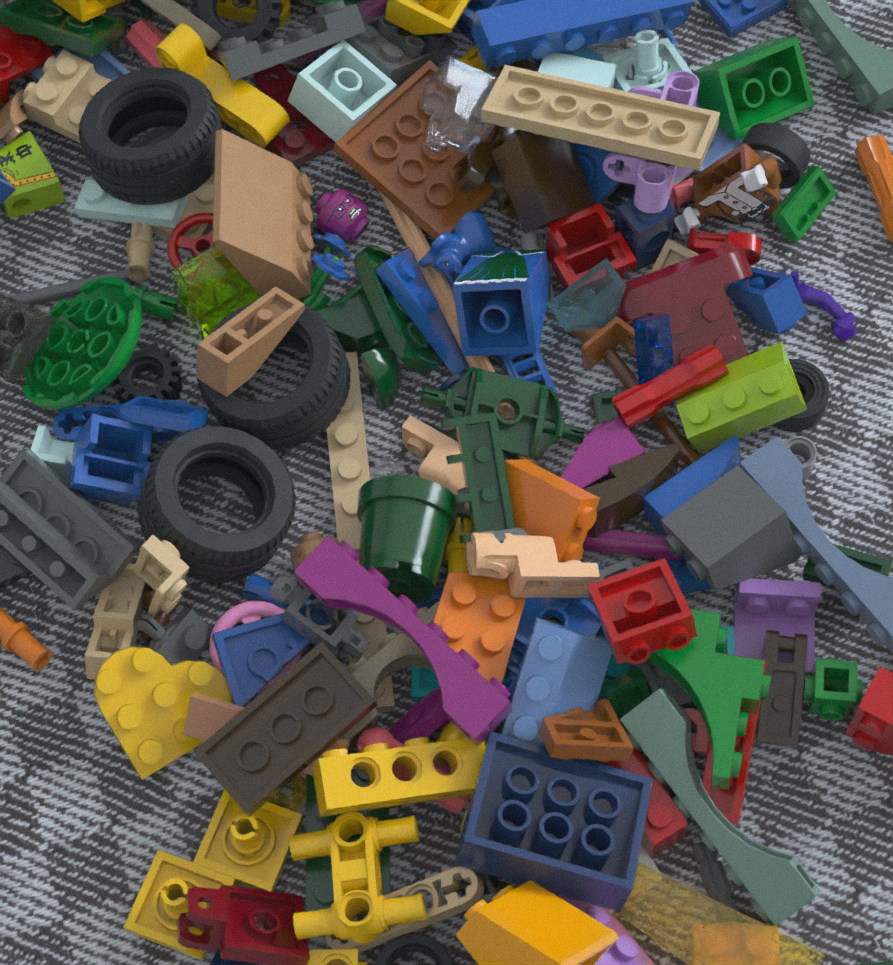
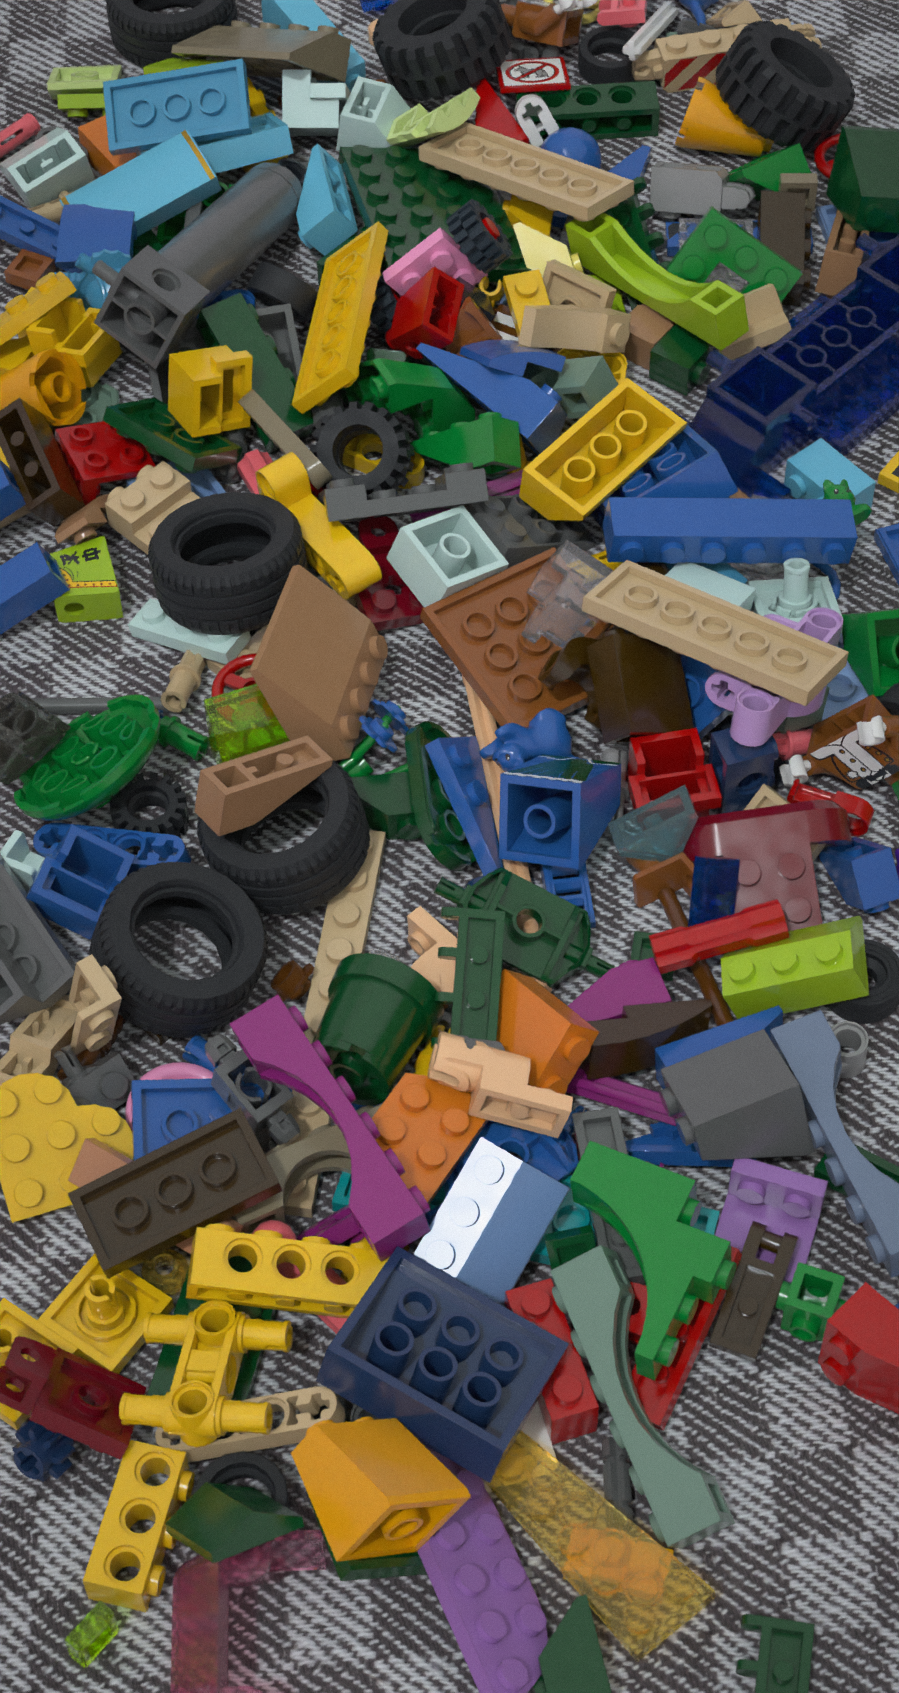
camera: 15 degrees right, 10 degrees down
(163, 414) = (149, 844): blue plate -> none
(317, 506) = (292, 980): none -> reddish brown plate
(342, 215) = (413, 689): magenta head -> none
(382, 375) = (404, 860): dark green brick -> none
(586, 734) = (497, 1275): dark orange wing -> none
(643, 612) = (604, 1156): red plate -> none

